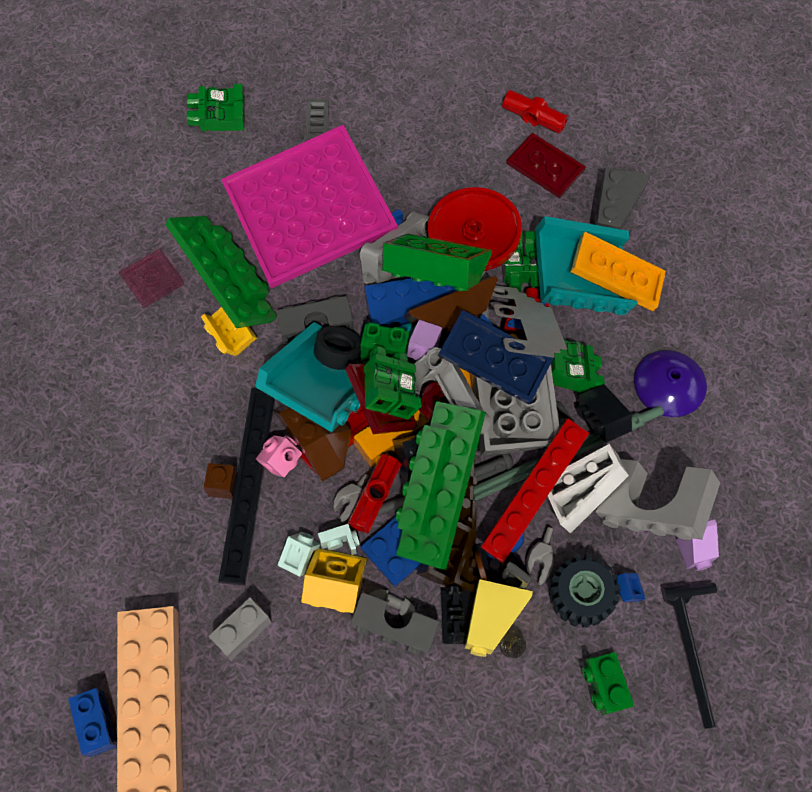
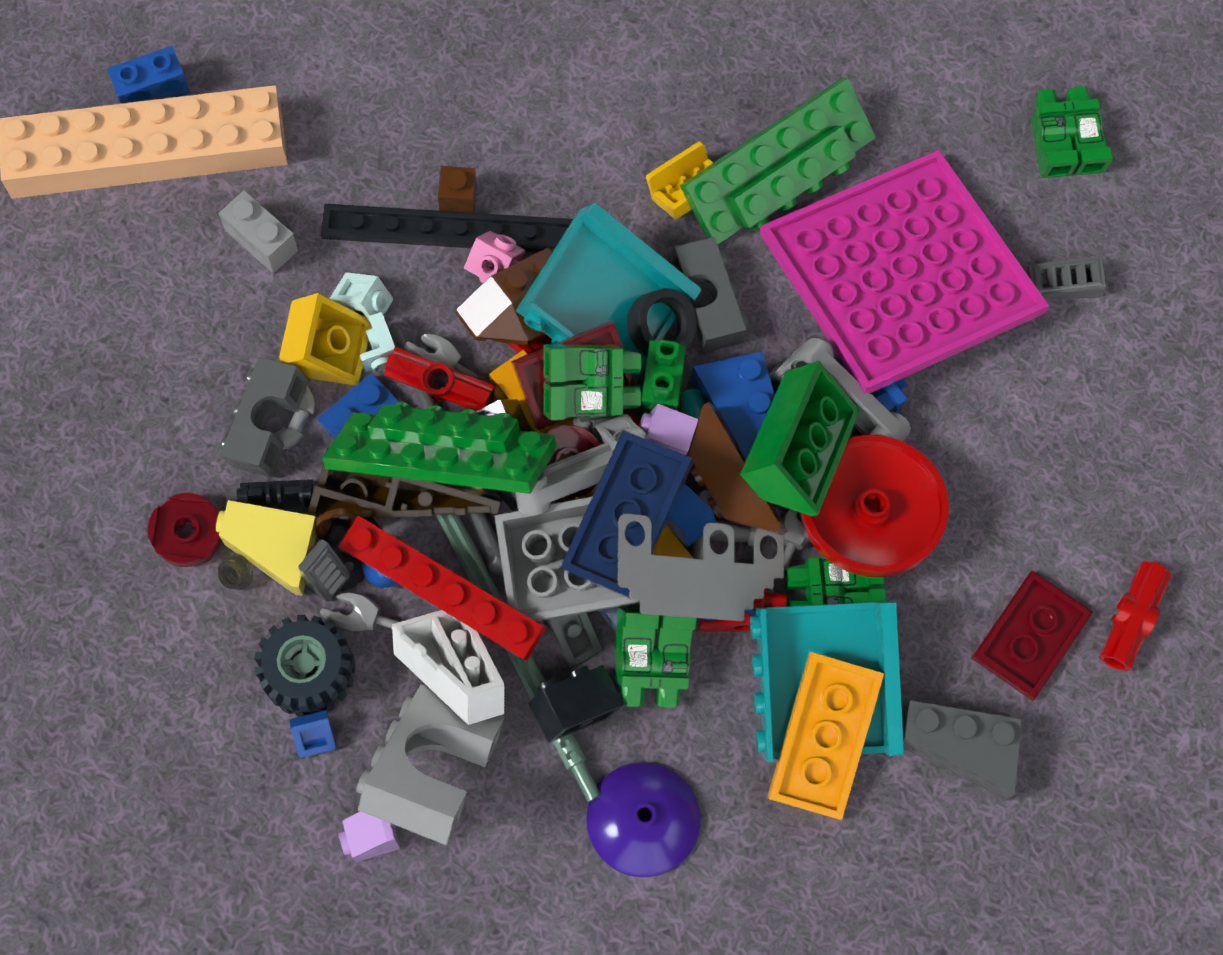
camera: 85 degrees right, 5 degrees up
(151, 278) = (765, 78): clear pink tile -> none
(468, 694) = (172, 515): none -> dark red plate
(608, 684) = (180, 697): green bracket -> none
(678, 597) = (302, 806): black bar -> none

